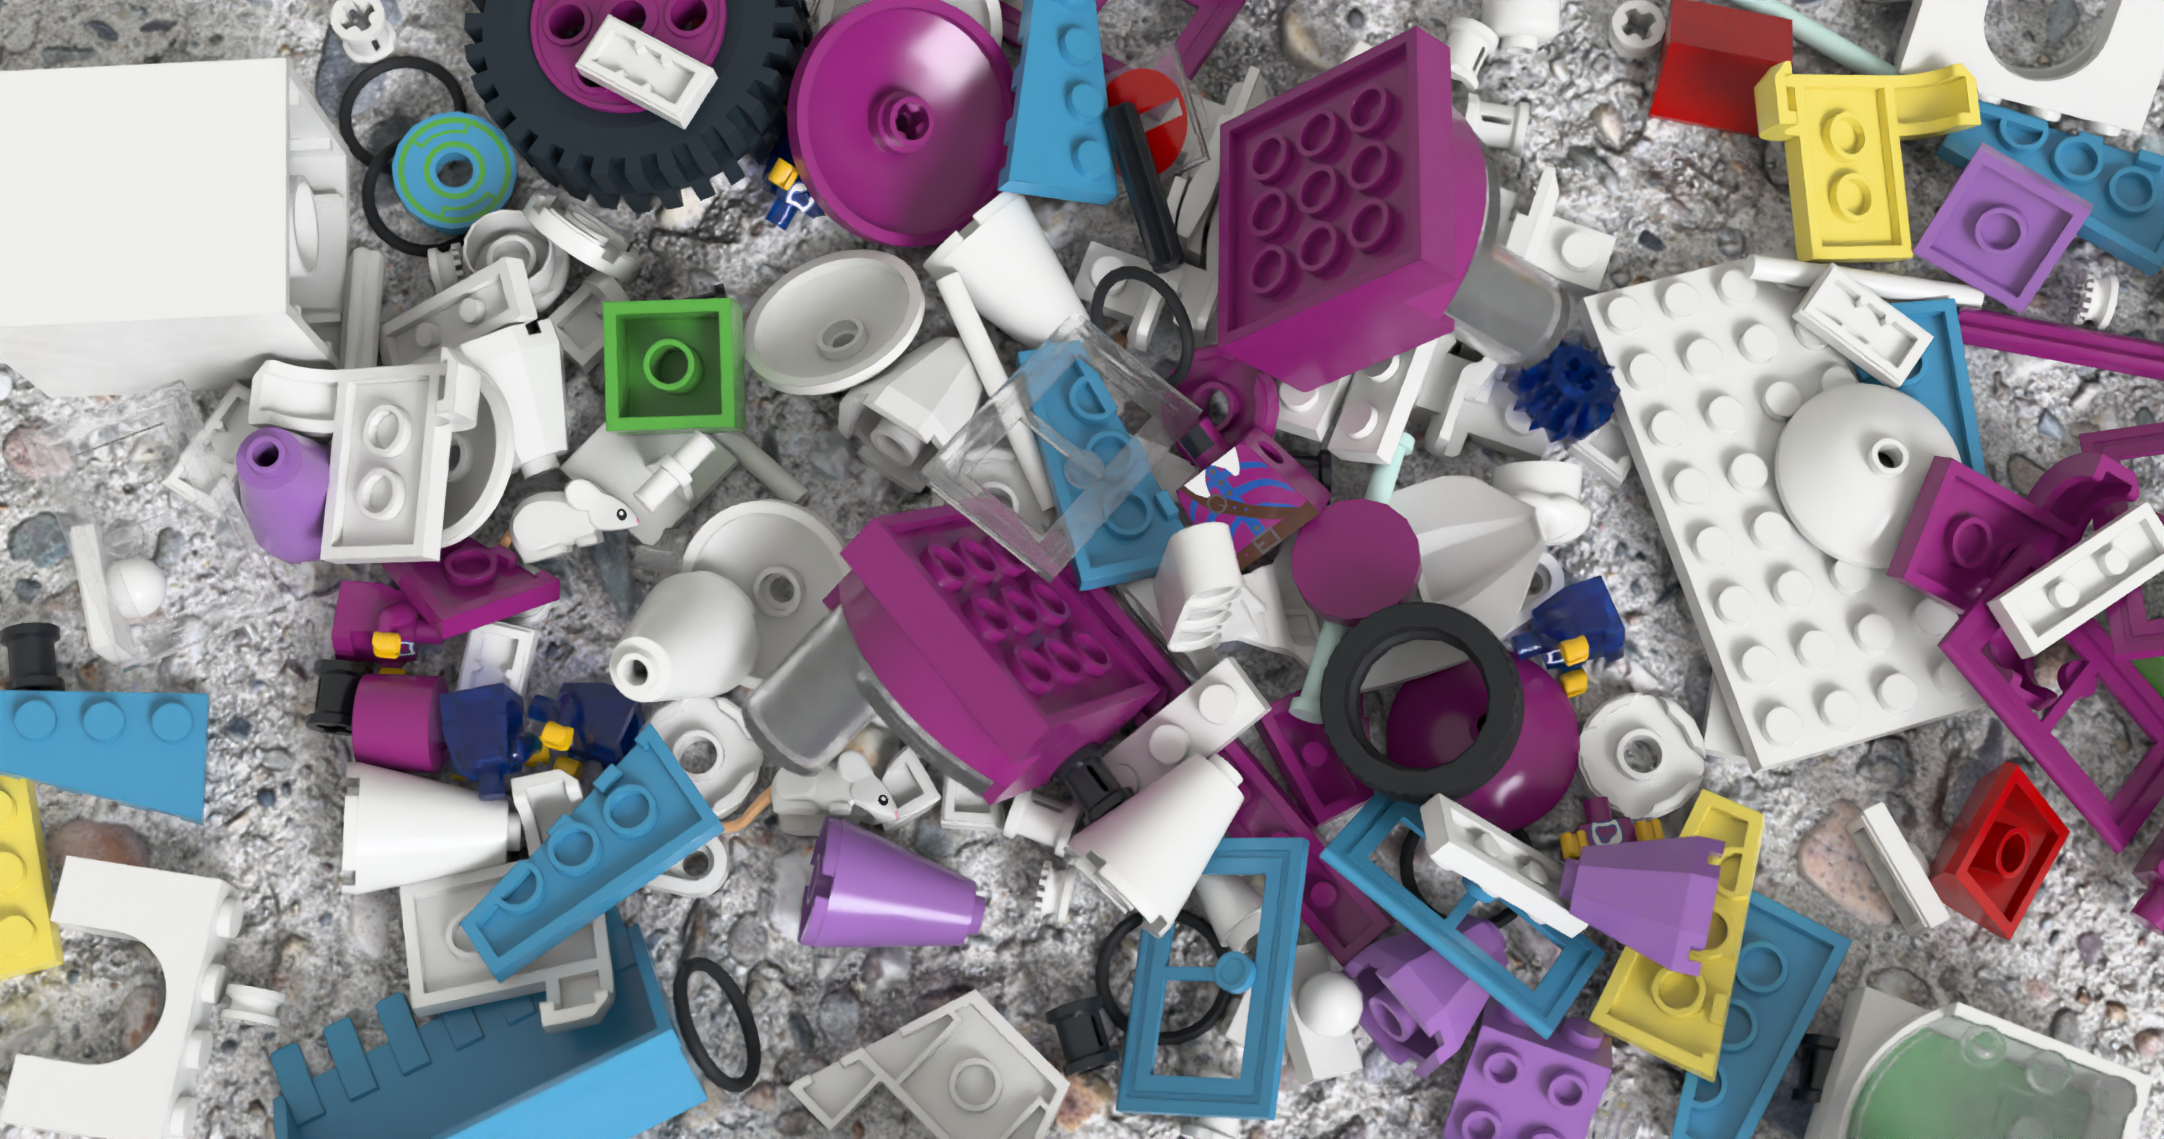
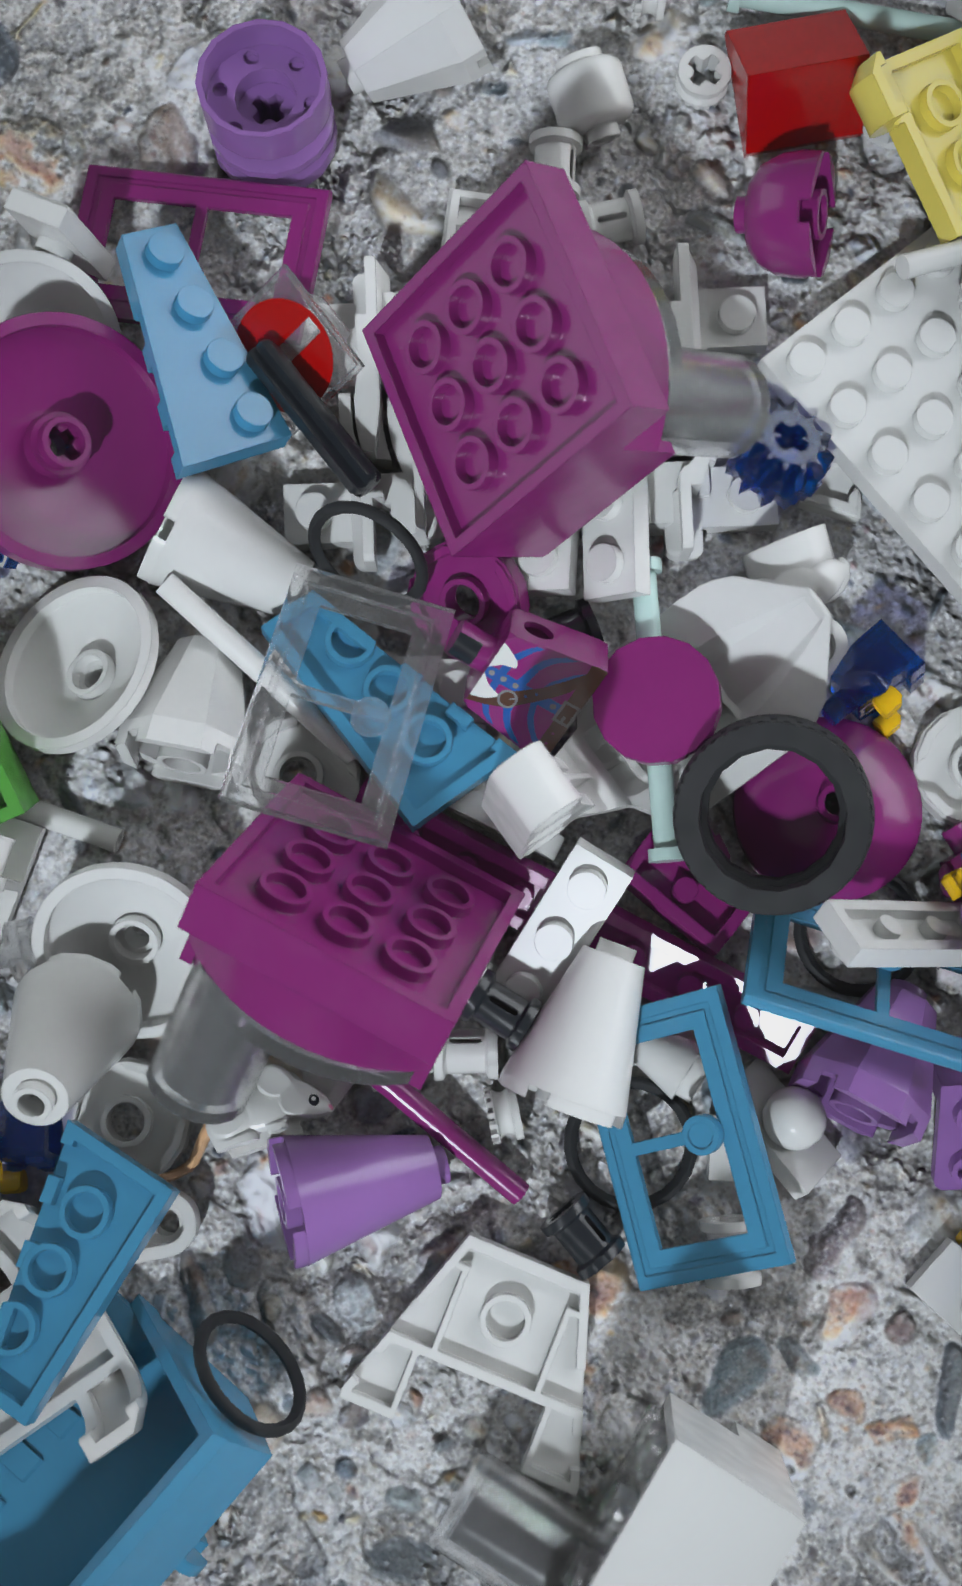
camera: 20 degrees left, 10 degrees up
(985, 871) = (455, 1140): none -> magenta bar
(1663, 181) = (788, 213): none -> magenta cylinder

